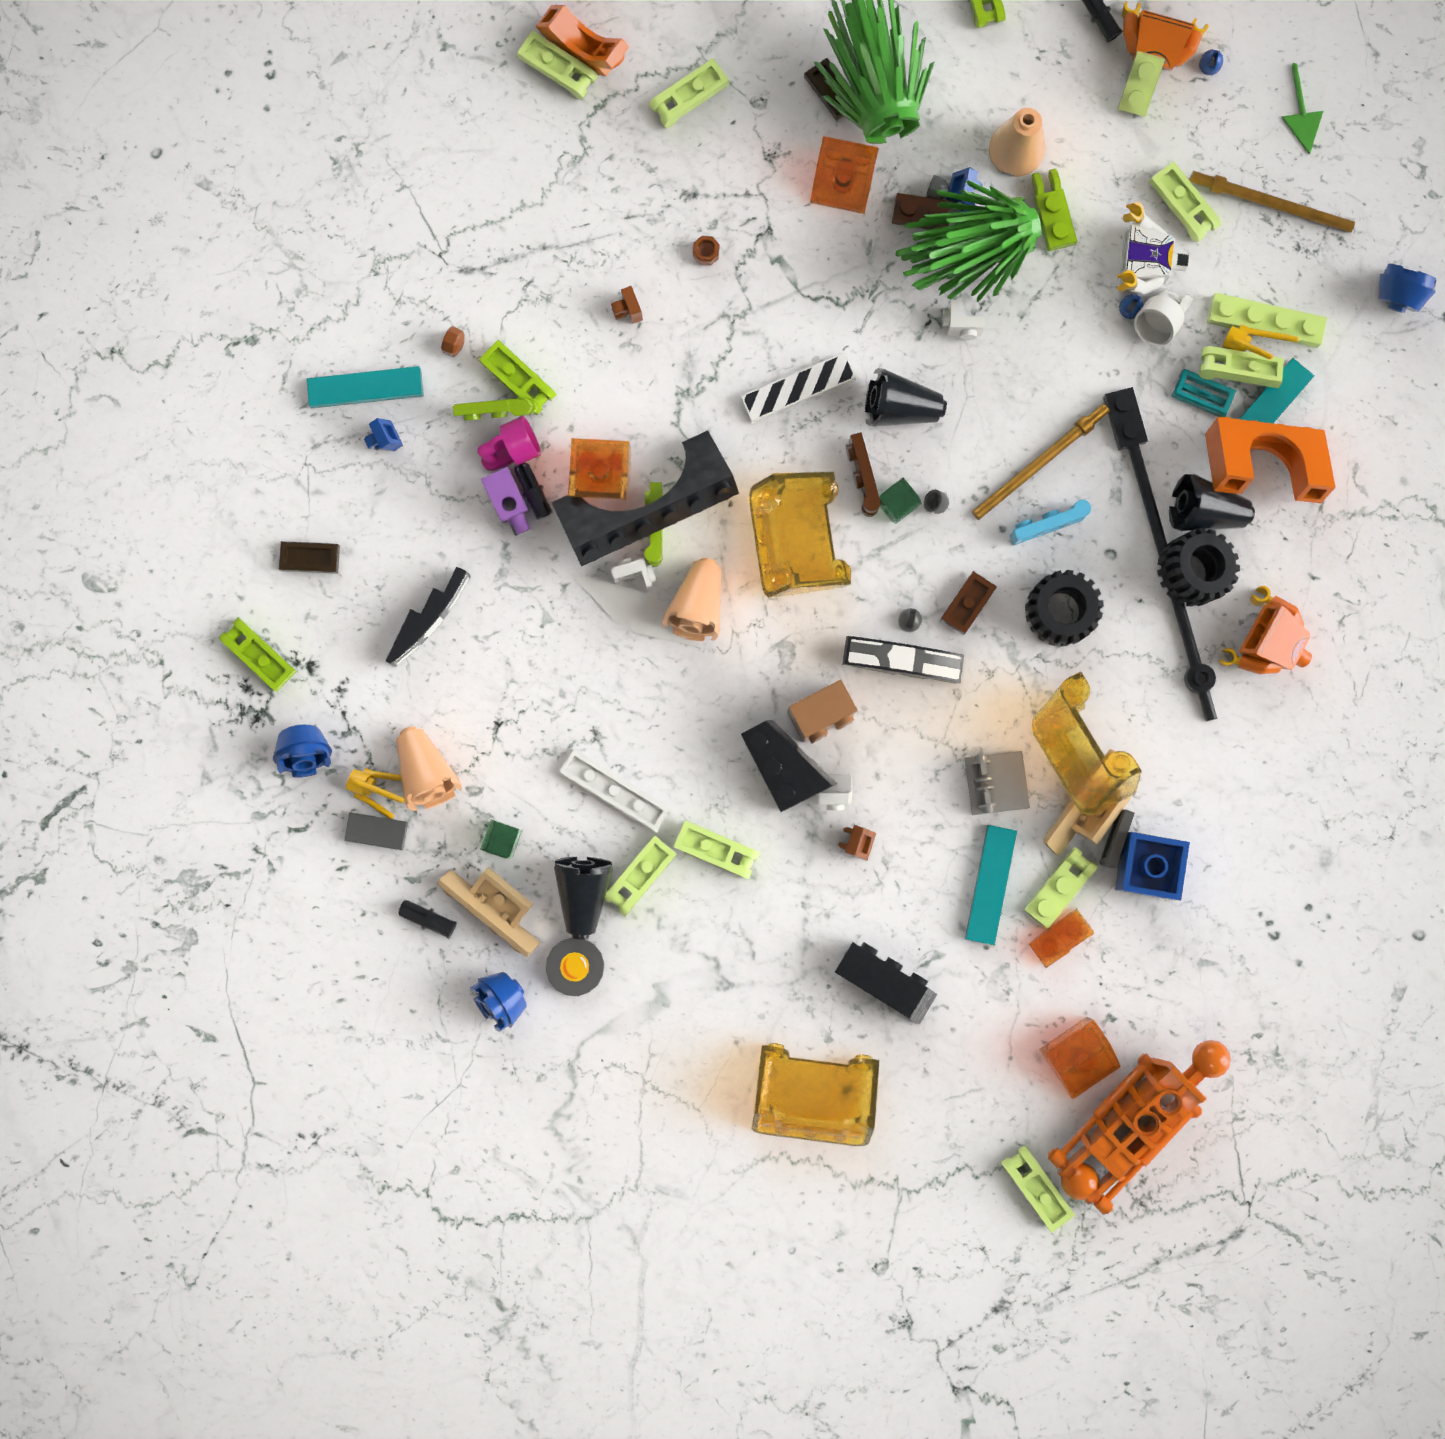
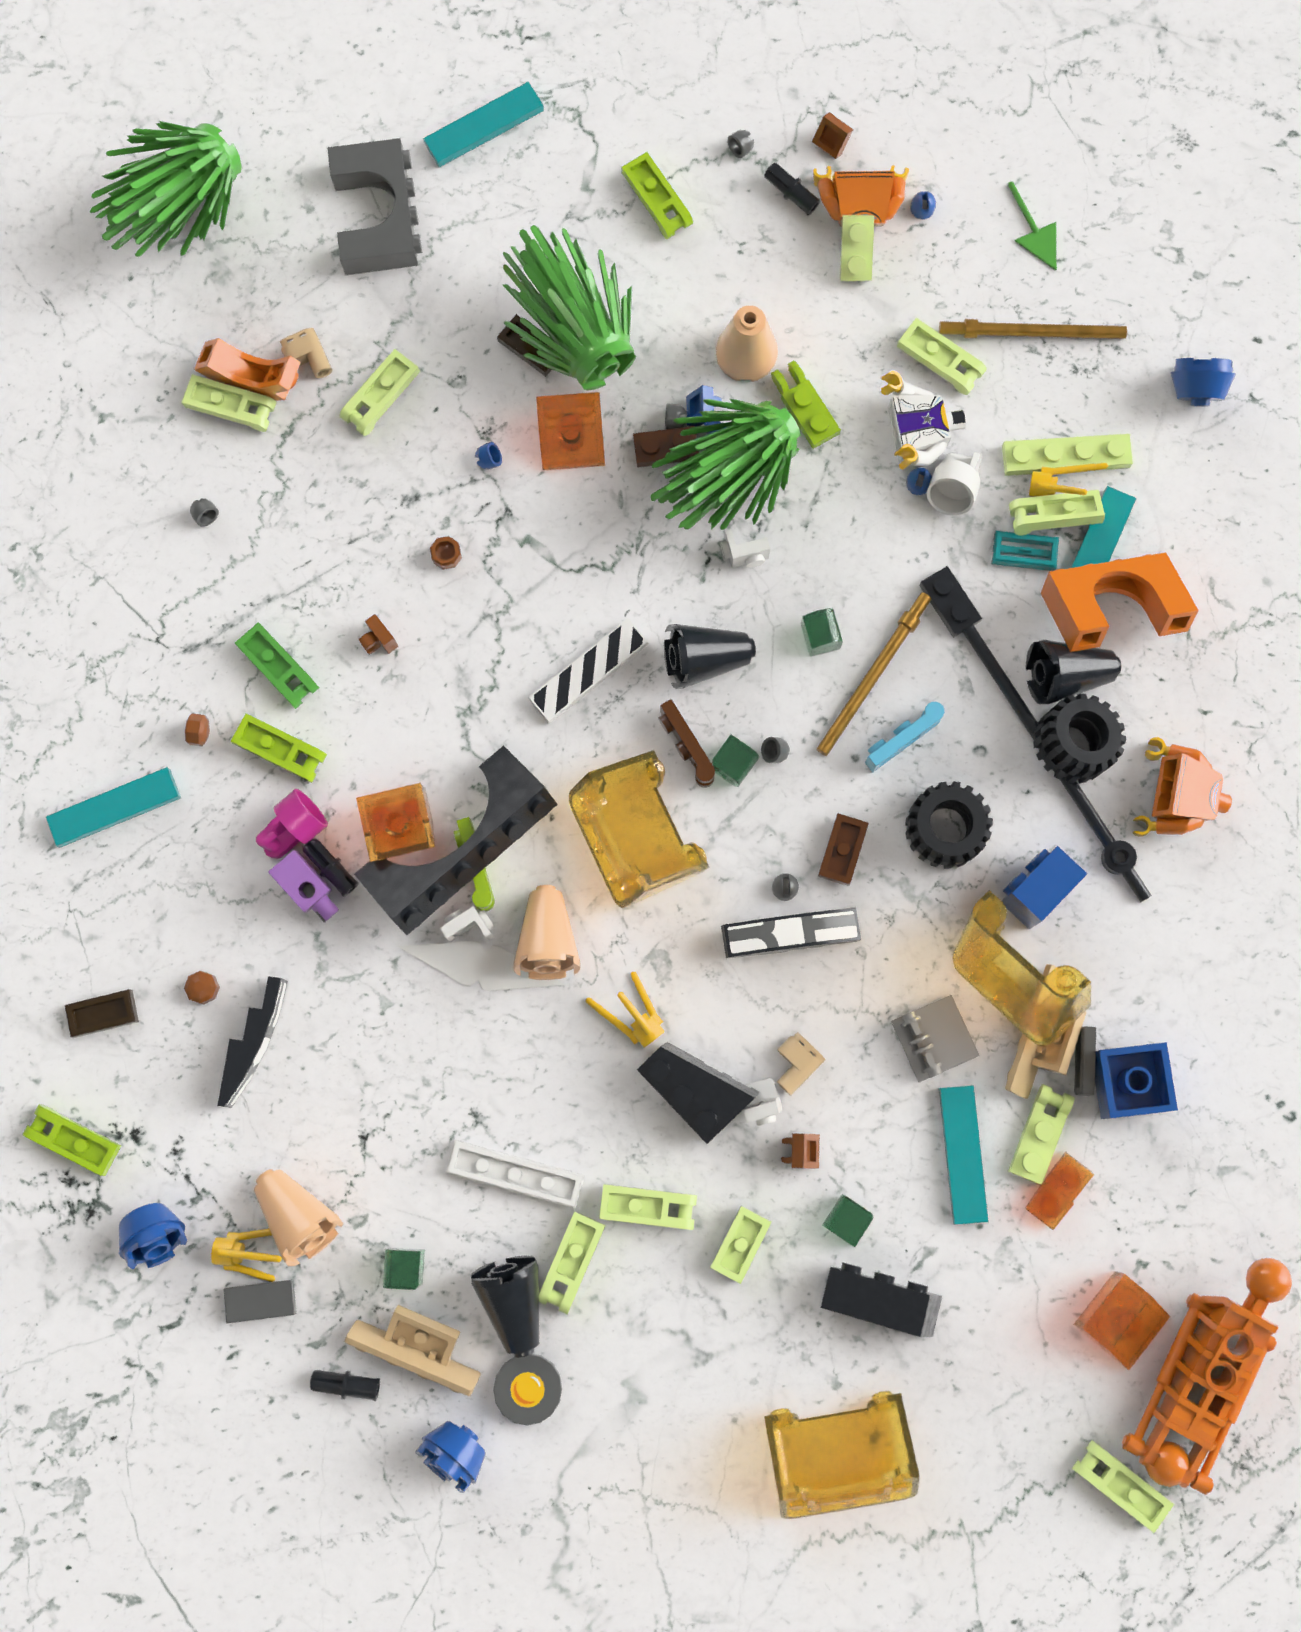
camera: 15 degrees left, 5 degrees down
(383, 436) = (148, 855): blue tile -> none
(398, 560) = (201, 987): none -> dark orange tile
(497, 408) = (265, 788): lime hinge -> none
(509, 155) = (204, 512): none -> dark grey hinge
(535, 305) = (276, 664): none -> bright green plate
(638, 38) = (307, 350): none -> tan piece
(757, 701) = (645, 1027): none -> yellow plant
(767, 176) = (489, 456): none -> blue hinge
(784, 902) = (740, 1244): none -> yellowish green plate
(822, 711) = (719, 1017): medium nougat brick -> none
(878, 909) = (848, 1220): none -> clear green piece
(879, 767) = (802, 1062): none -> tan piece
(1006, 412) = (821, 631): none -> clear green piece
(1133, 680) = (1047, 883): none -> blue brick

